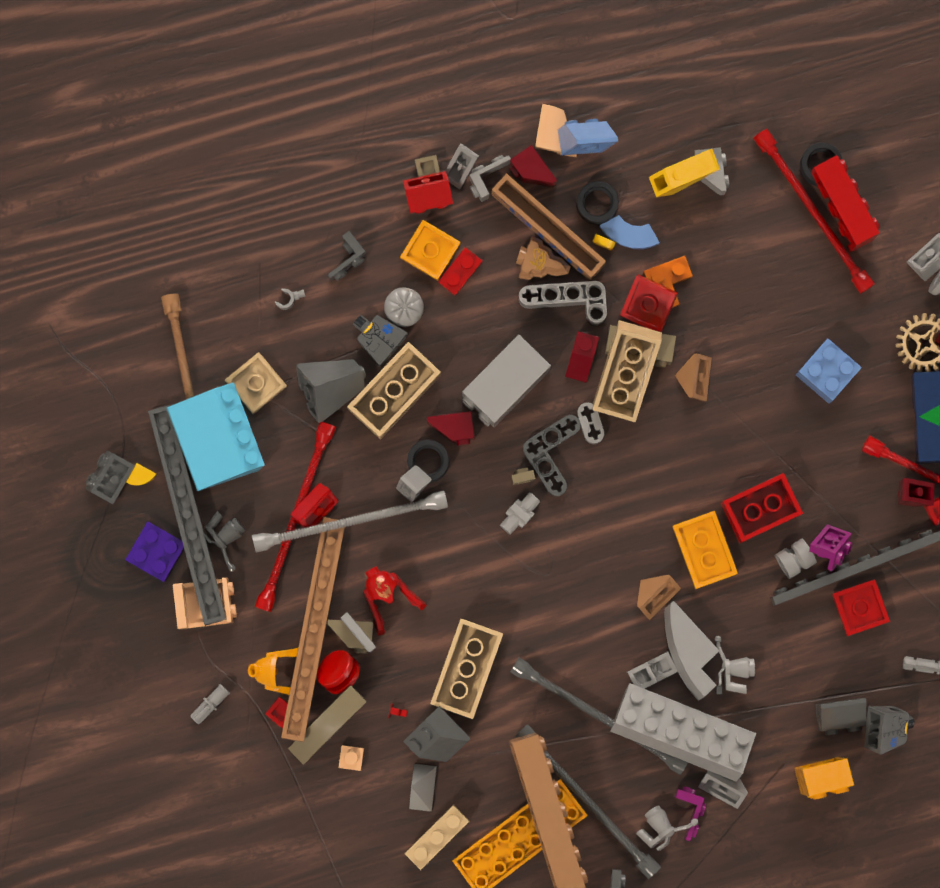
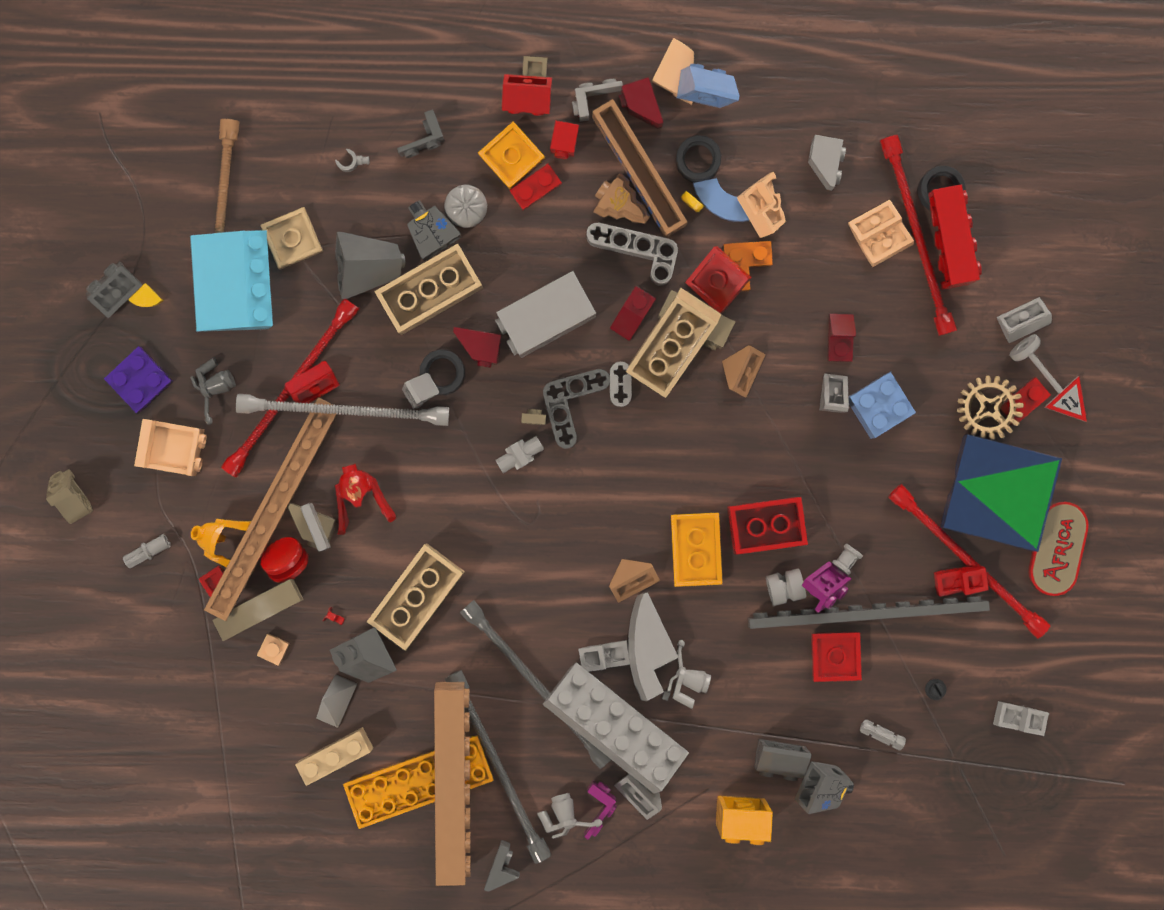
camera: 15 degrees right, 5 degrees up
(125, 675) = (67, 496): none -> dark tan pin
(187, 517) = (179, 356): dark grey plate -> none
(461, 165) = (569, 77): light grey slope -> none
(473, 222) = (564, 139): none -> red brick
(668, 227) = (763, 206): none -> light nougat slope
(684, 173) = (796, 155): yellow slope -> none
(774, 322) = (841, 337): none -> dark red slope
(780, 219) = (881, 233): none -> light nougat slope
(784, 373) = (834, 393): none -> light grey slope
(842, 517) = (847, 559): none -> light grey bush
(915, 493) = (930, 558): dark red slope -> none

